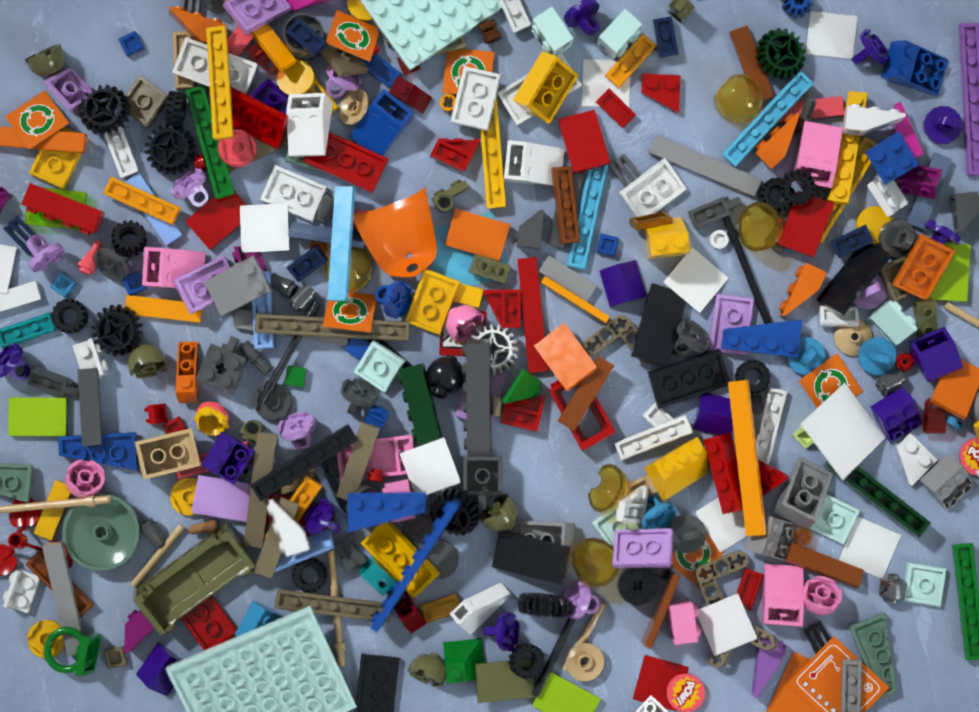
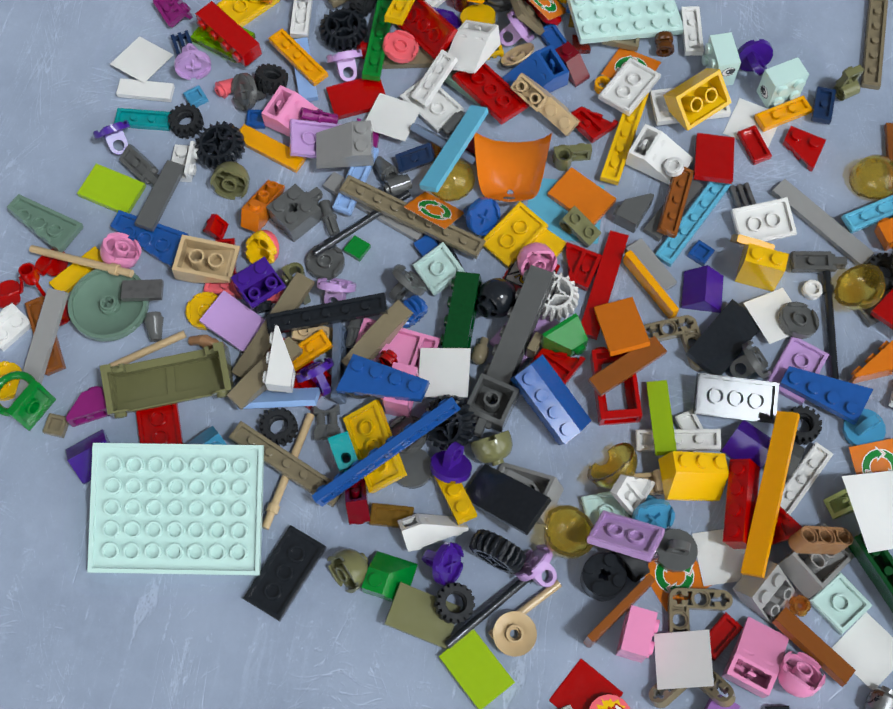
camera: 25 degrees right, 20 degrees down
(127, 509) = (142, 290): none -> flat silver tile
(186, 265) = (318, 116): none -> magenta pin
(287, 174) = (434, 78): none -> white plate
(404, 152) = (545, 103): none -> tan slope
(451, 429) = (480, 351): none -> dark tan cylinder
(473, 548) = (451, 464): none -> dark purple tile
(486, 568) = (457, 501): none -> yellow plate
(533, 451) = (551, 400): none -> blue slope
(551, 174) = (673, 166): none -> white tile
(632, 425) = (661, 417): none -> lime tile
(717, 277) = (798, 320): none -> dark grey tile
(794, 484) = (820, 540): none -> medium nougat beam

